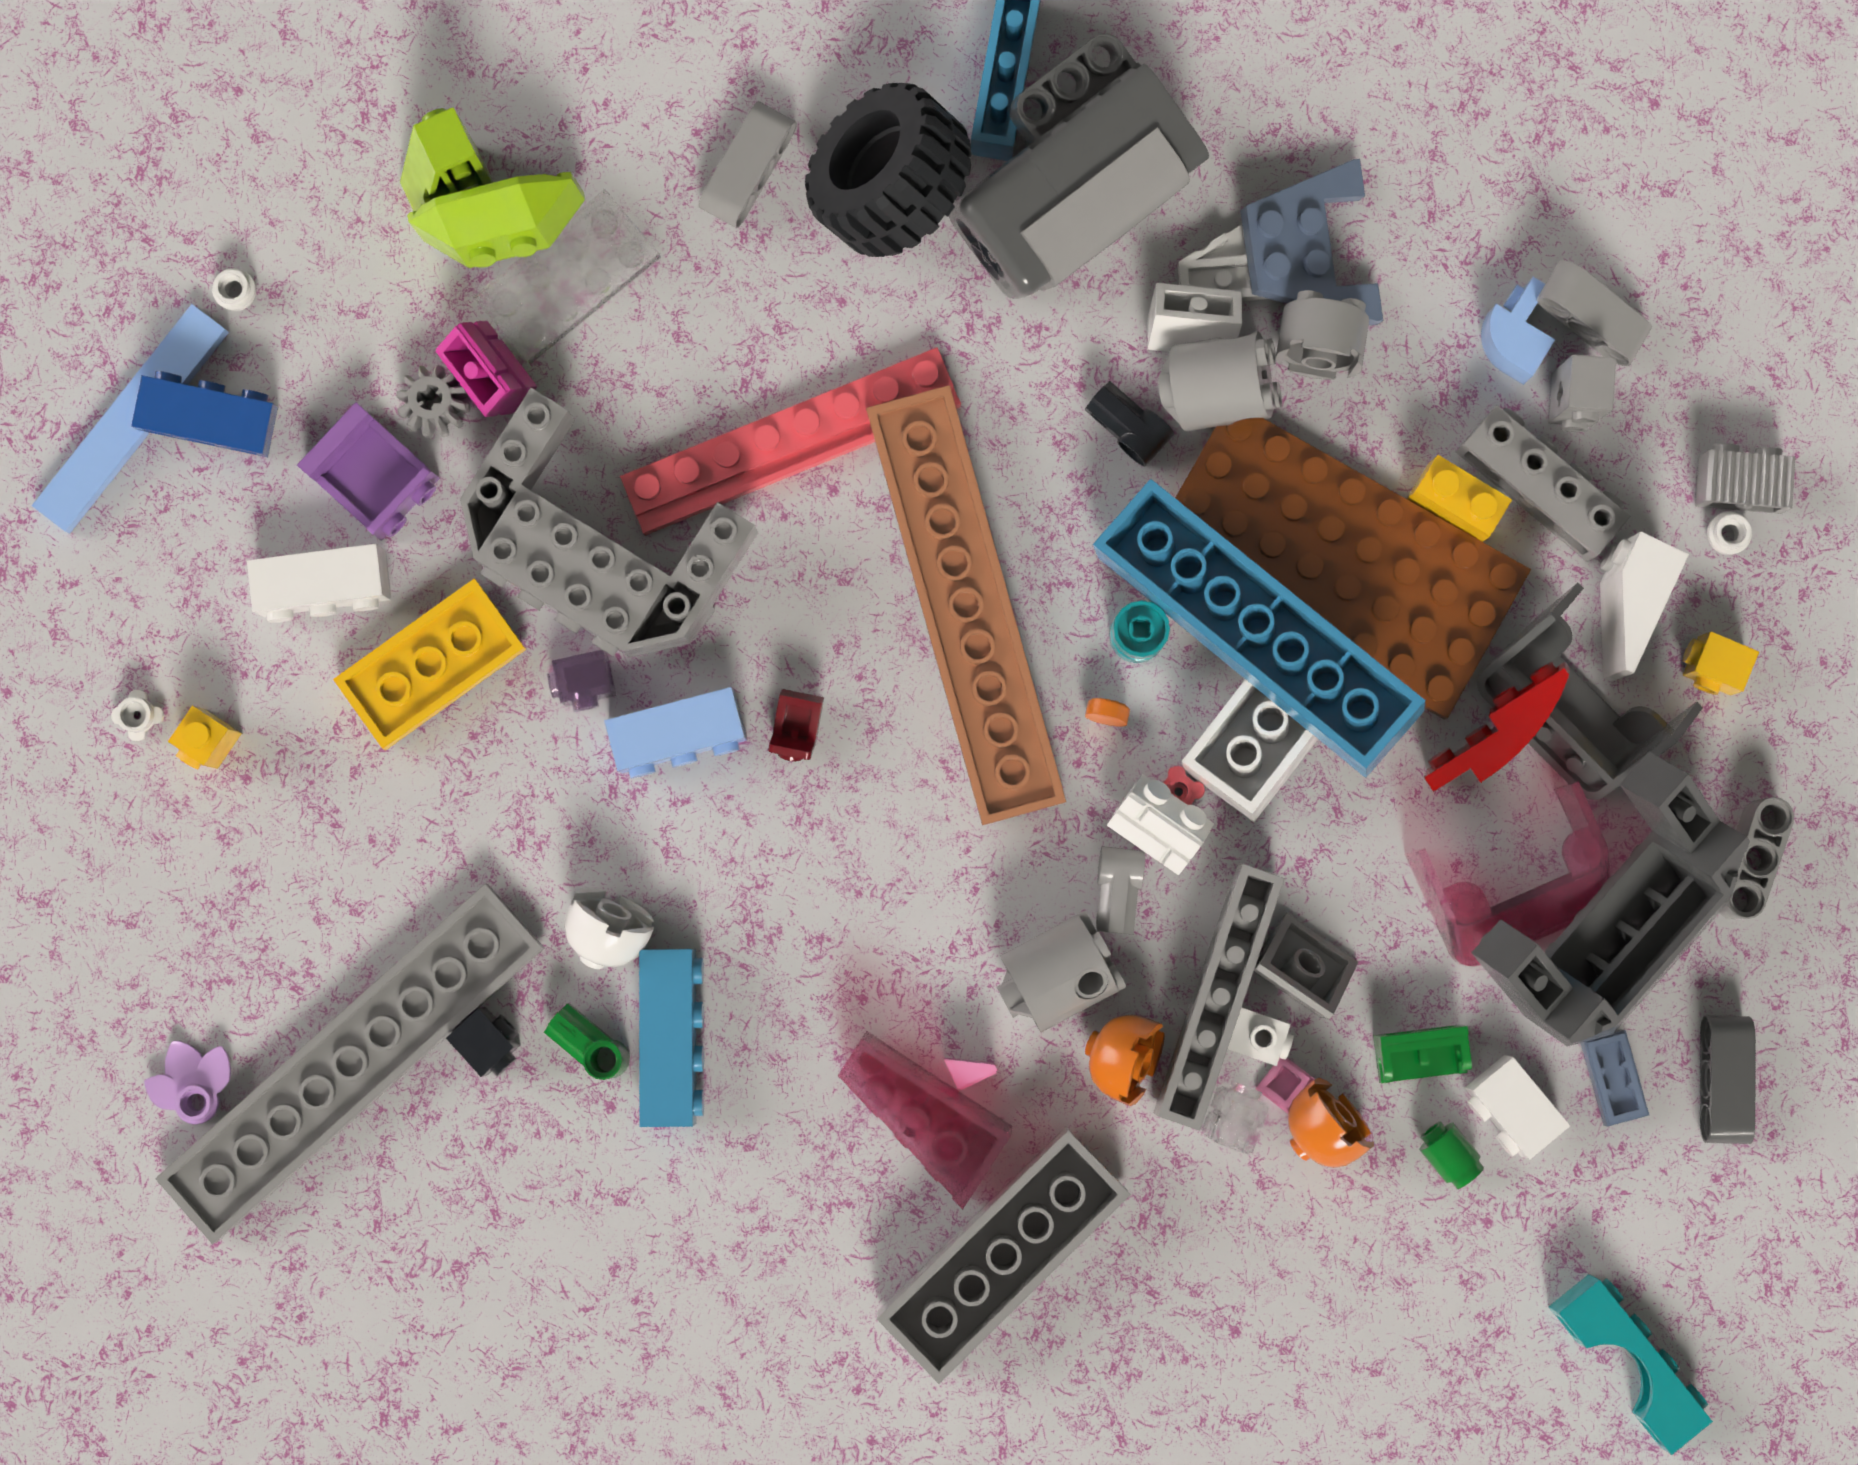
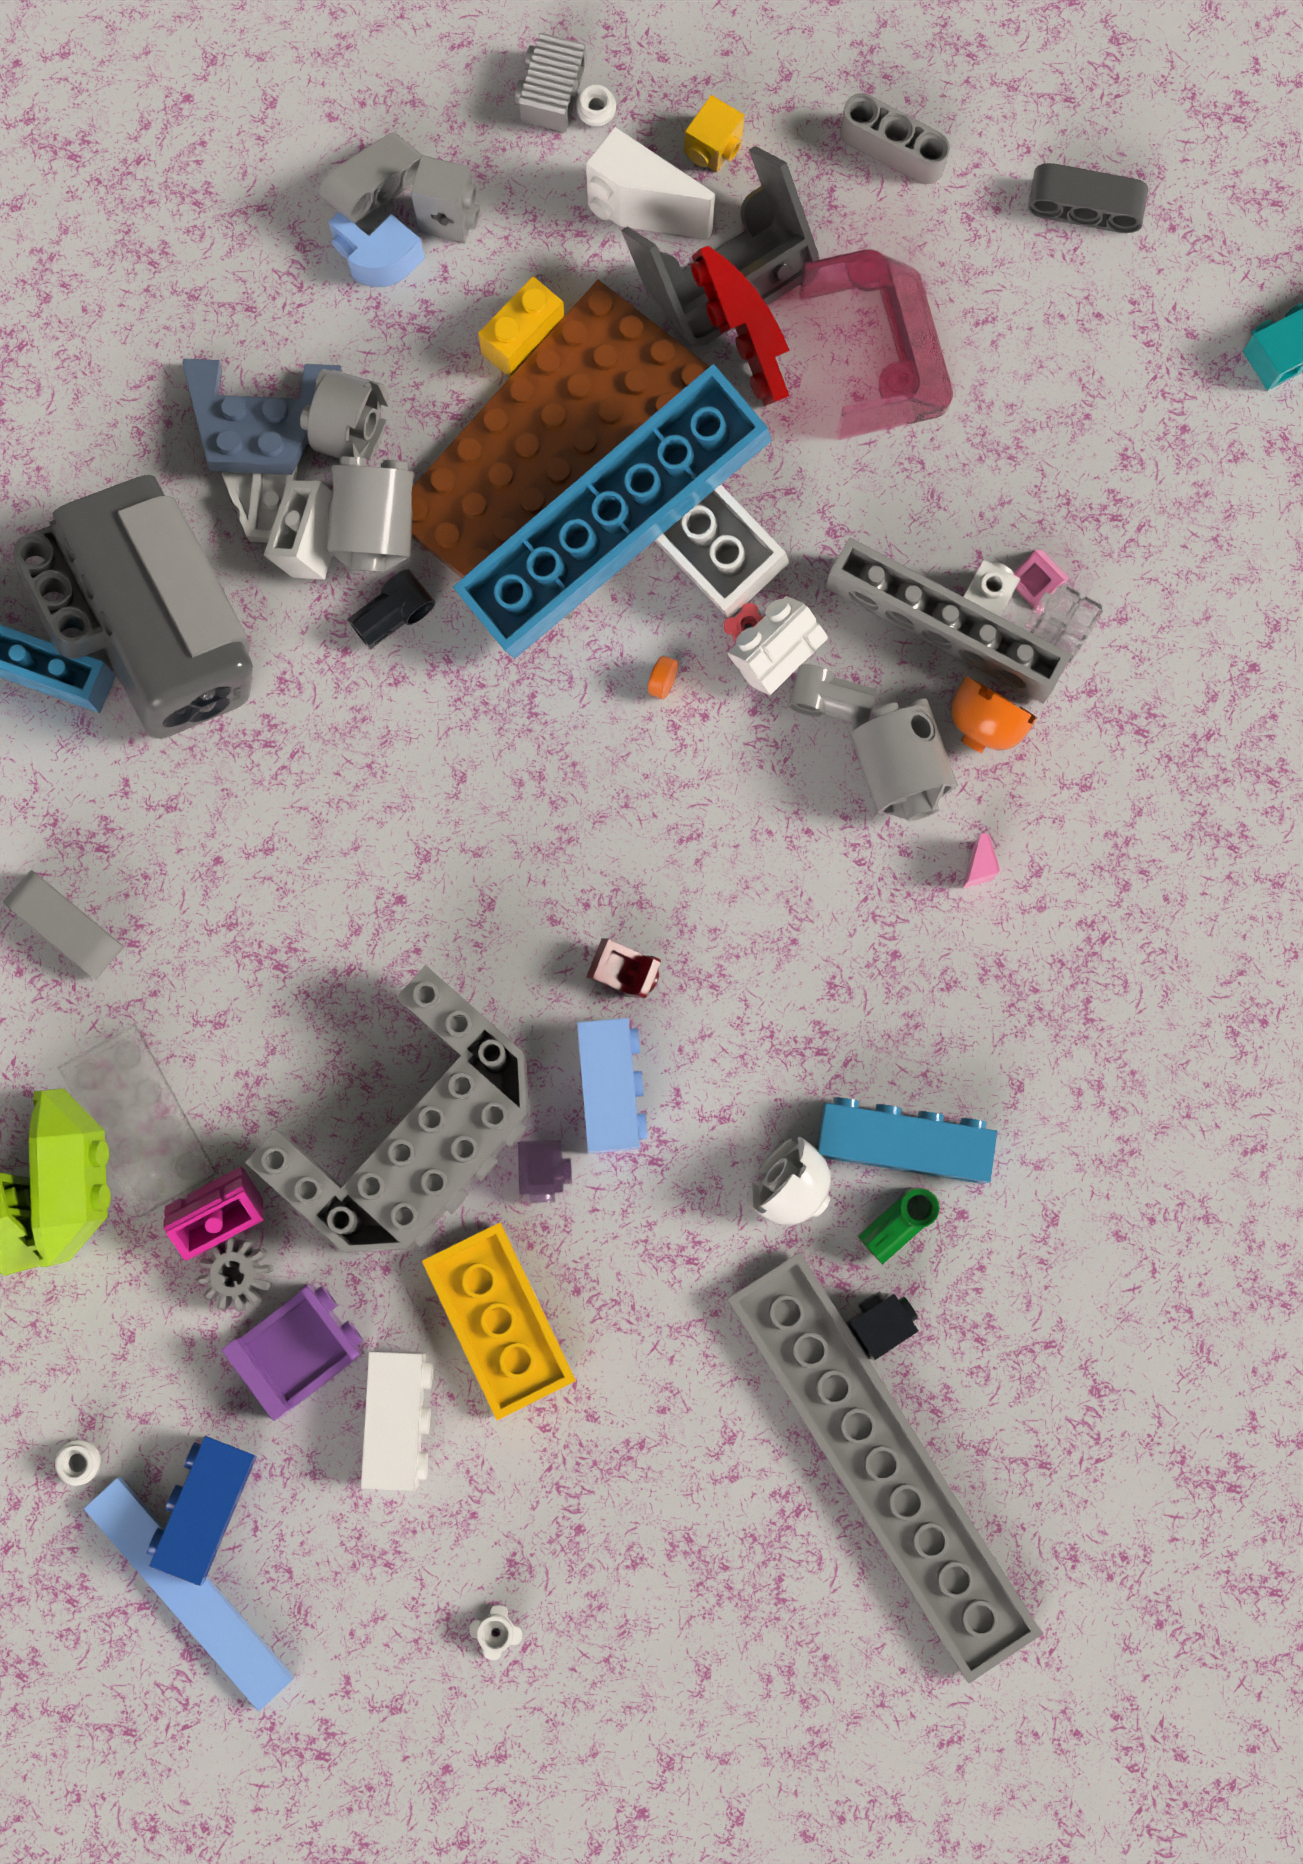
camera: 85 degrees left, 5 degrees down
(190, 1074) = (868, 1635): lavender plate -> none
(203, 739) = (533, 1564): yellow brick -> none
(774, 445) = (345, 932): coral plate -> none
(888, 170) = (130, 755): black tyre -> none
(929, 1117) = (1023, 902): clear pink wedge -> none
(966, 605) = (535, 789): nougat plate -> none
(1002, 1255) = (1158, 859): light grey brick -> none
(1139, 631) = (592, 632): teal wheel -> none
(1305, 966) = (934, 538): light grey slope -> none
(1326, 1127) = (1083, 547): orange cylinder -> none
(1422, 1053) = (1024, 453): green hinge -> none
(1451, 1154) = (1121, 444): green brick -> none
(1516, 1108) = (1087, 381): white brick -> none
(1543, 482) = (524, 248): light grey brick -> none
(1615, 1078) = (1072, 293): sand blue plate -> none
(1634, 923) = (938, 235): dark grey wedge -> none

